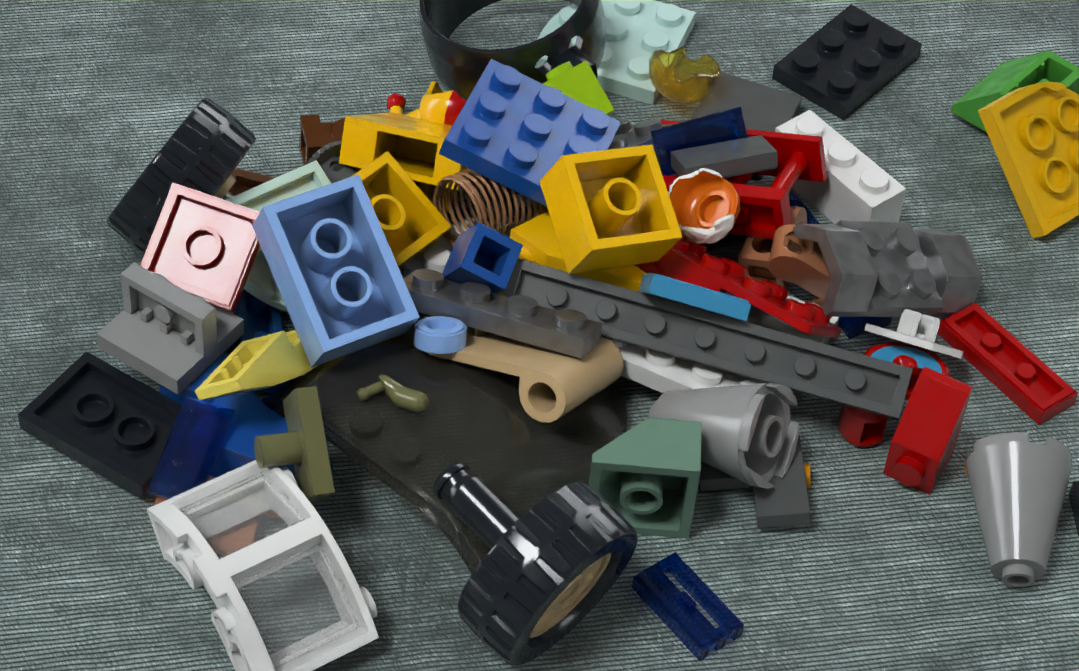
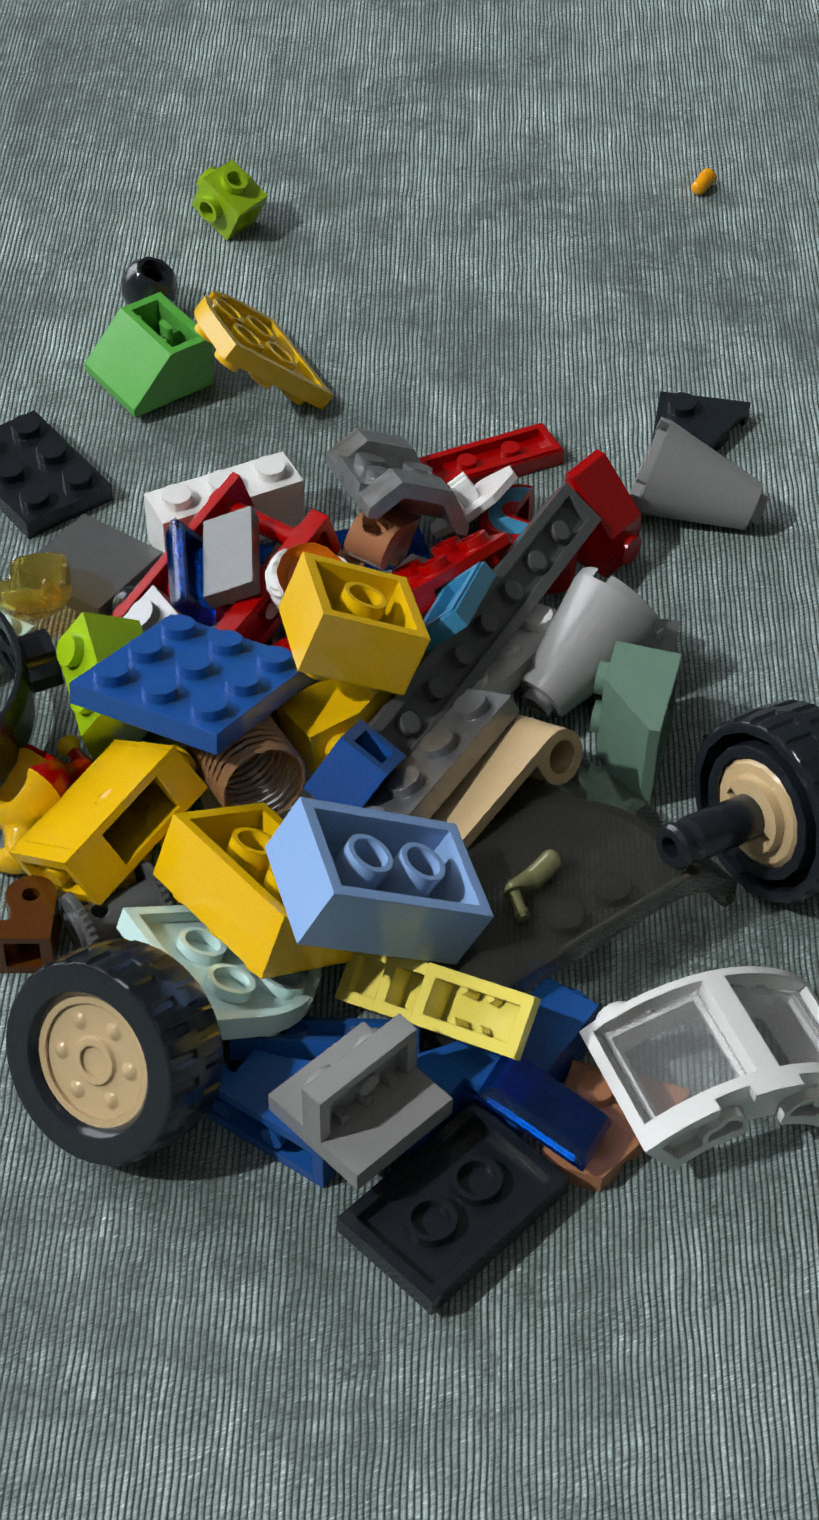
camera: 75 degrees left, 0 degrees up
(204, 246) = (275, 1023): tile -> none
(302, 445) = (587, 975): olive tile -> none
(440, 335) = (466, 815): light blue tile -> none

